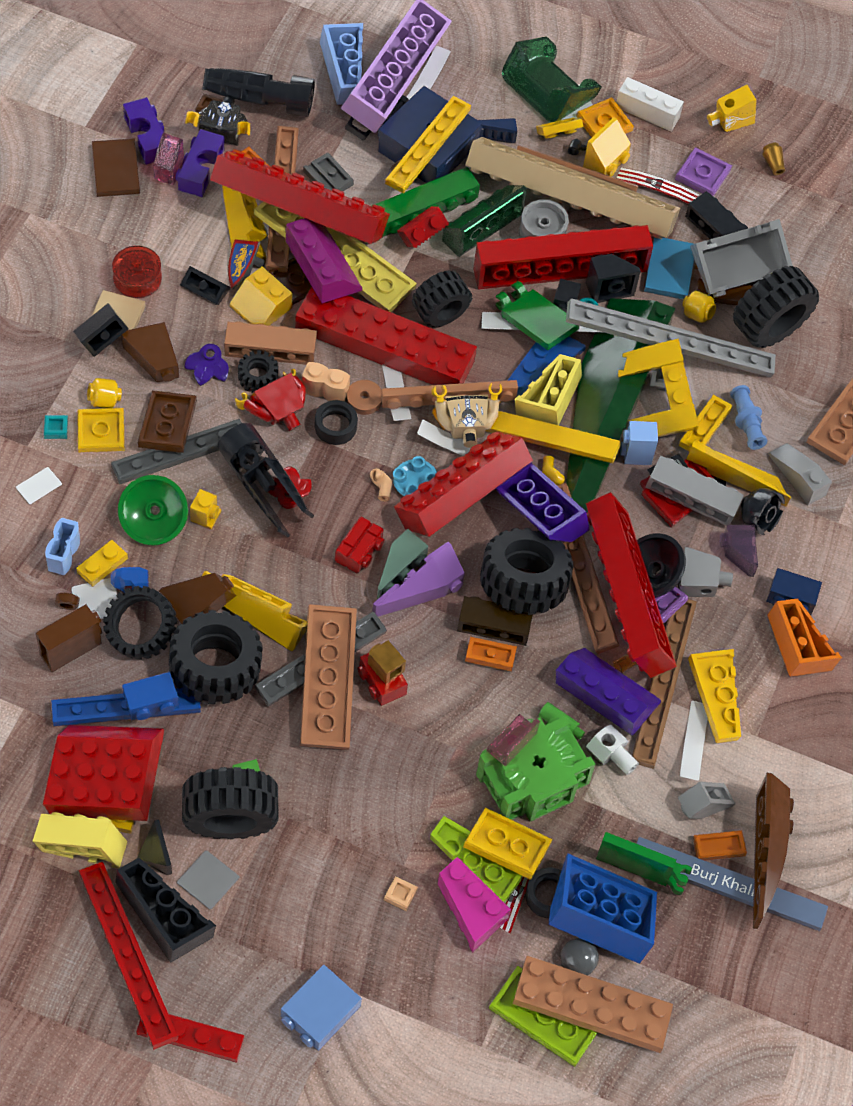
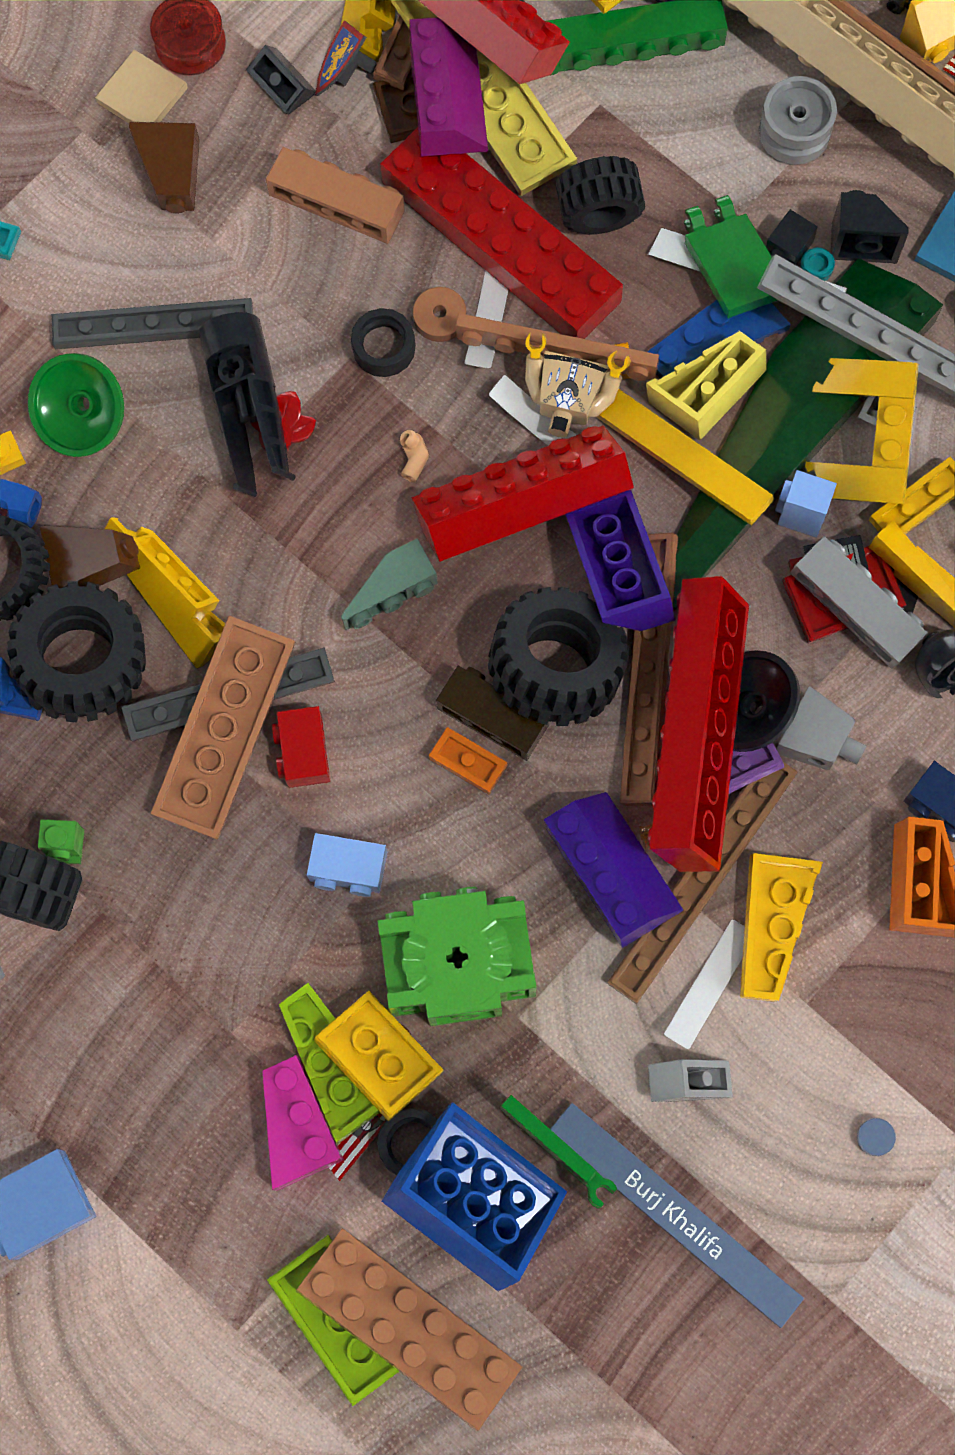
camera: 30 degrees right, 15 degrees up
(101, 330) = (102, 111): black brick -> none
(101, 430) = (57, 261): yellow tile -> none
(104, 393) = (77, 207): yellow head -> none
(167, 421) = (149, 274): reddish brown tile -> none
(204, 509) = (150, 423): yellow brick -> none
(207, 367) = (238, 207): dark purple plate -> none
(257, 361) = (303, 251): black tyre -> none
(262, 298) = (348, 124): yellow slope -> none
(277, 401) = (311, 287): red torso -> none
(325, 382) = (389, 278): light nougat brick -> none
(359, 545) = (345, 540): red brick -> none
(386, 661) = (304, 734): pearl gold brick -> none
(400, 893) = (209, 1074): light nougat tile -> none
(412, 474) = (461, 454): medium azure dish -> none
(423, 227) = (618, 73): red brick -> none
(432, 581) = (431, 624): medium lavender wedge -> none
(439, 737) = (347, 864): none -> light blue brick
(485, 219) = (716, 83): clear green slope -> none
(513, 739) = (430, 914): clear pink panel -> none
(550, 711) = (527, 889): bright green cylinder -> none
(552, 473) = (660, 508): yellow arm -> none
(557, 256) = (803, 173): red brick -> none
(579, 956) = (416, 1255): dark grey hair -> none
(615, 752) = (589, 967): white piece -> none
(720, 845) = (684, 1152): orange tile -> none
(740, 547) = (896, 708): clear purple slope -> none
(771, 841) = (755, 1181): reddish brown wedge -> none
(831, 799) = (876, 1137): none -> sand blue tile

